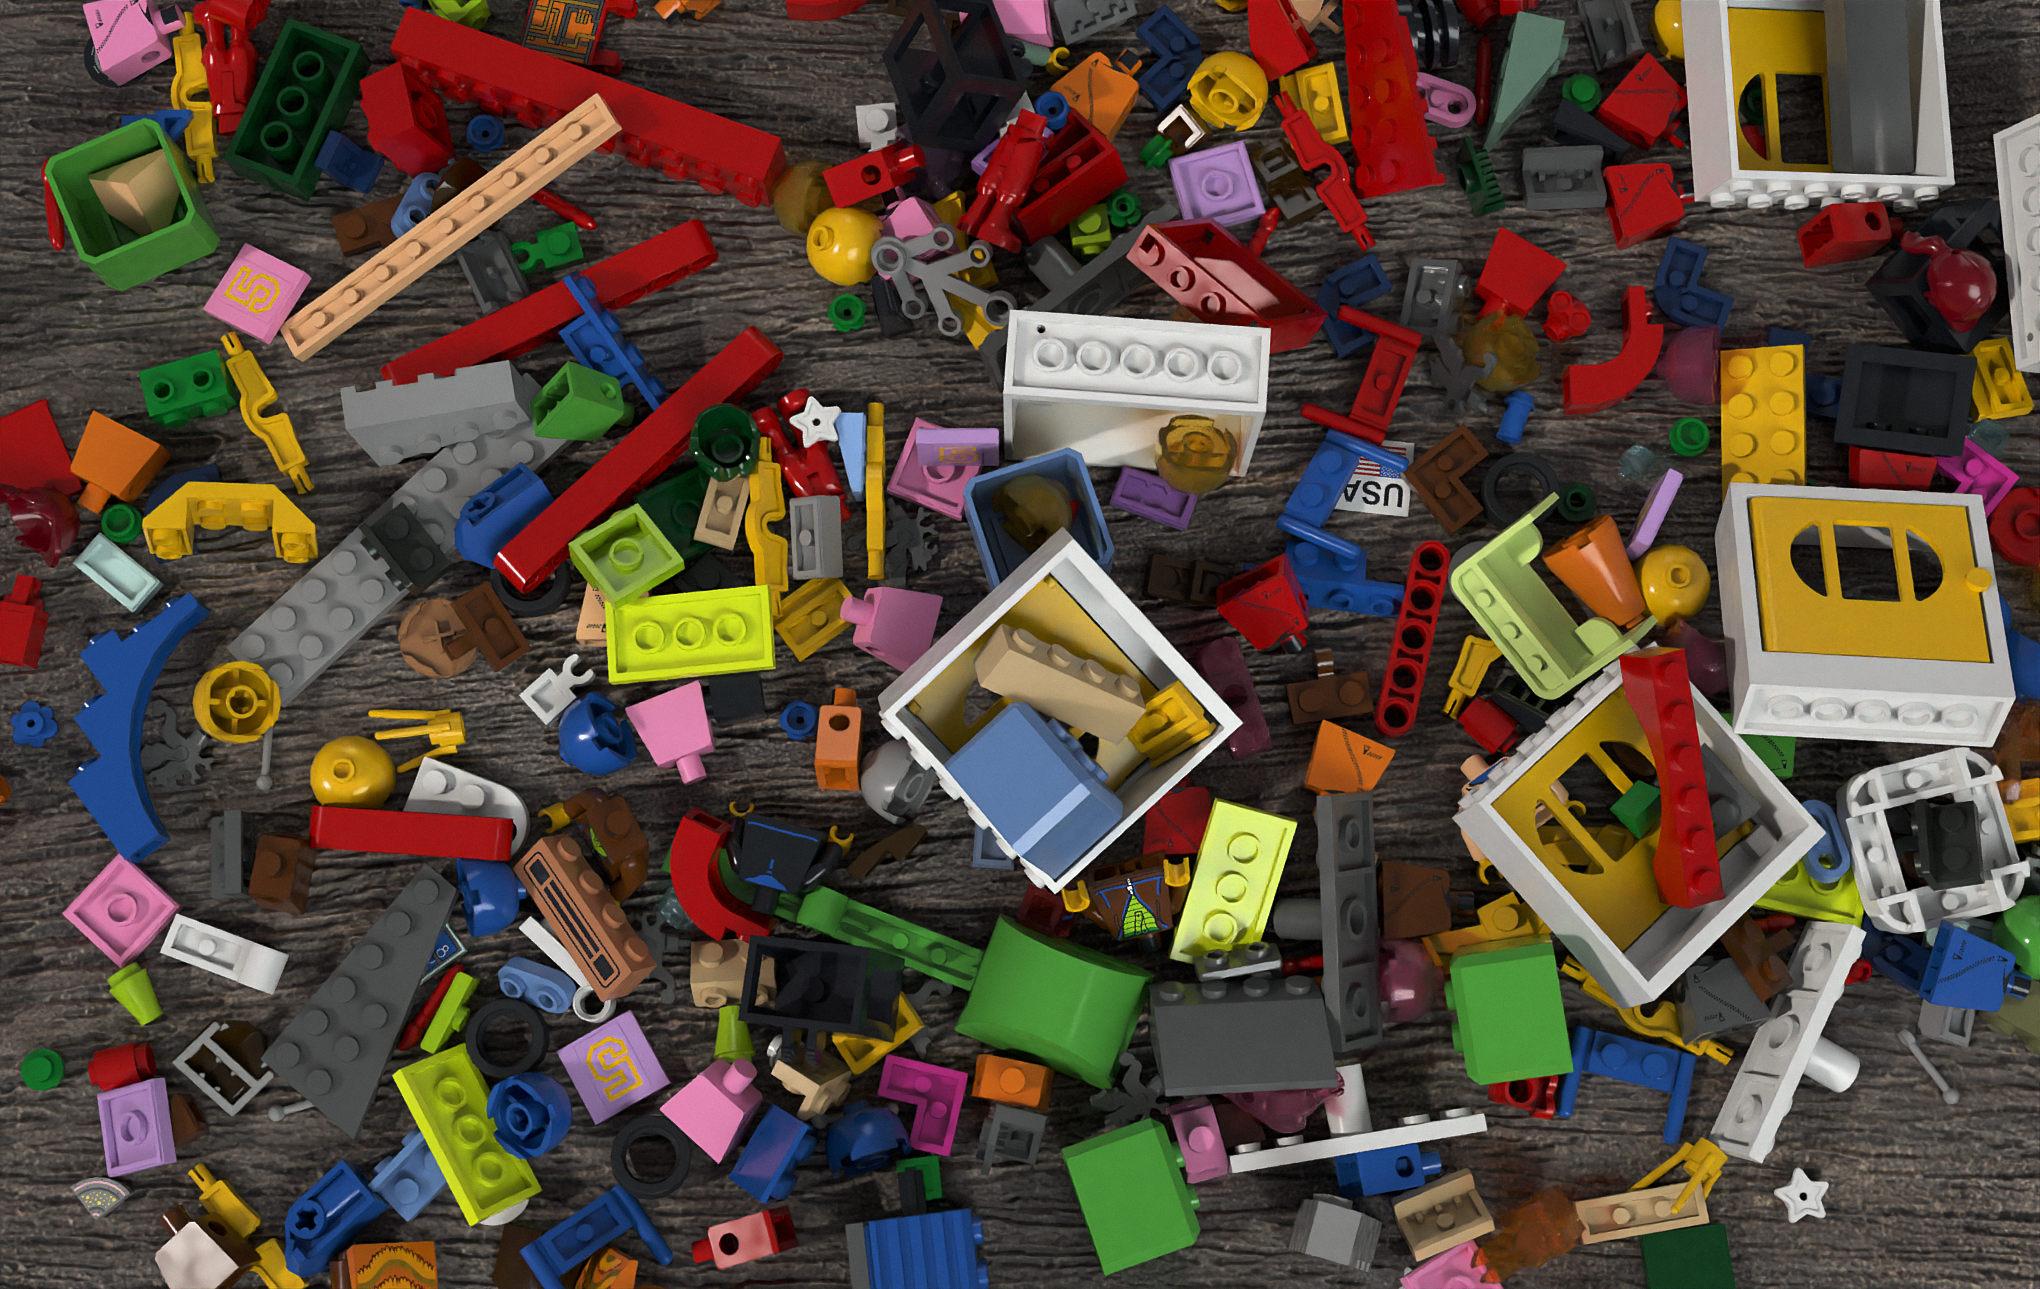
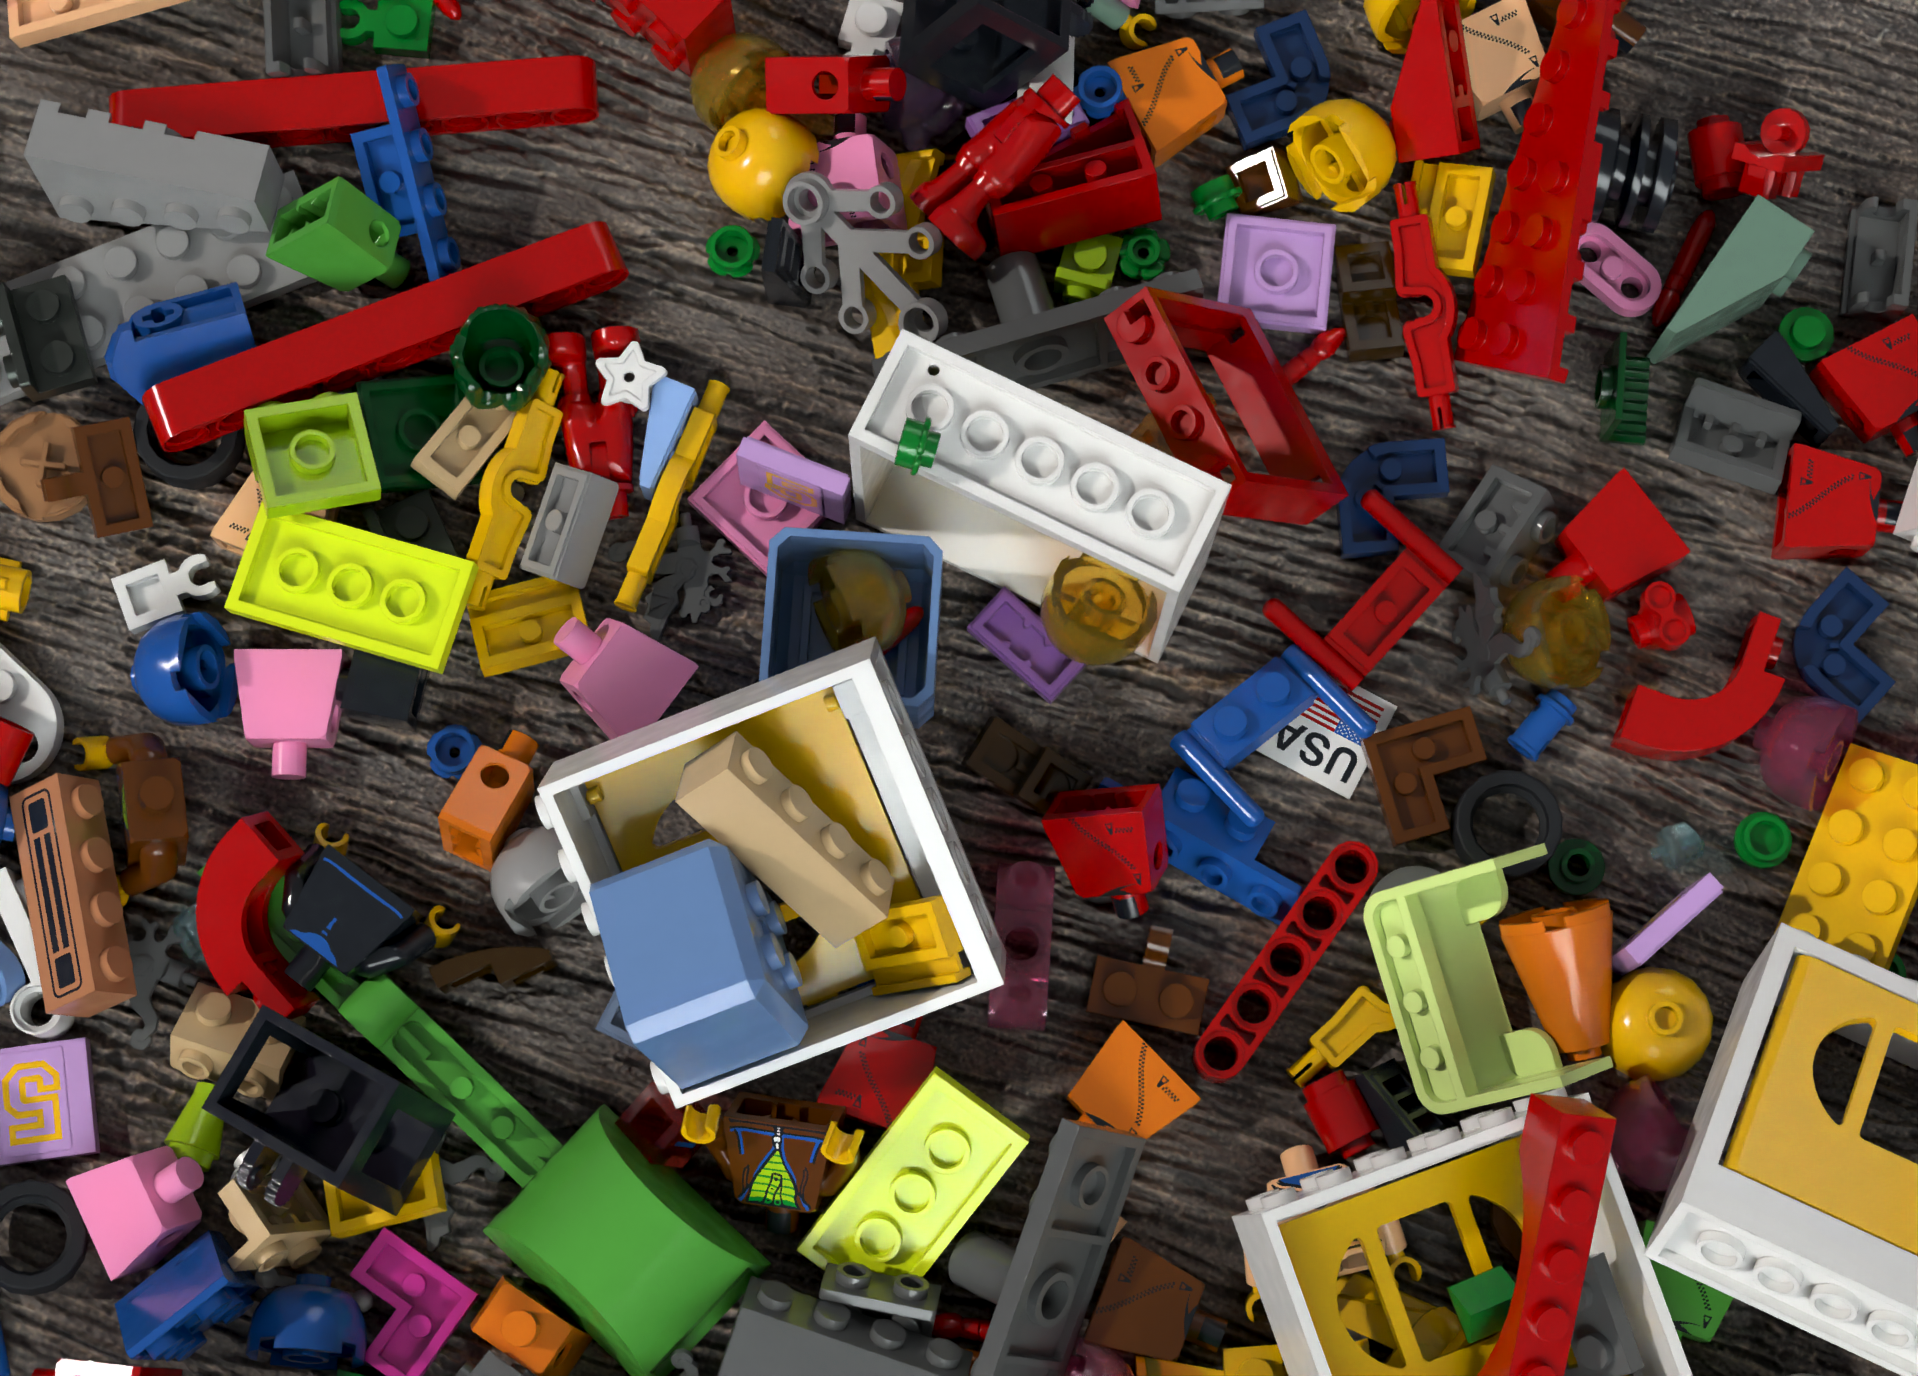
camera: 20 degrees right, 0 degrees up
(1053, 382) = (917, 445): none -> green plate

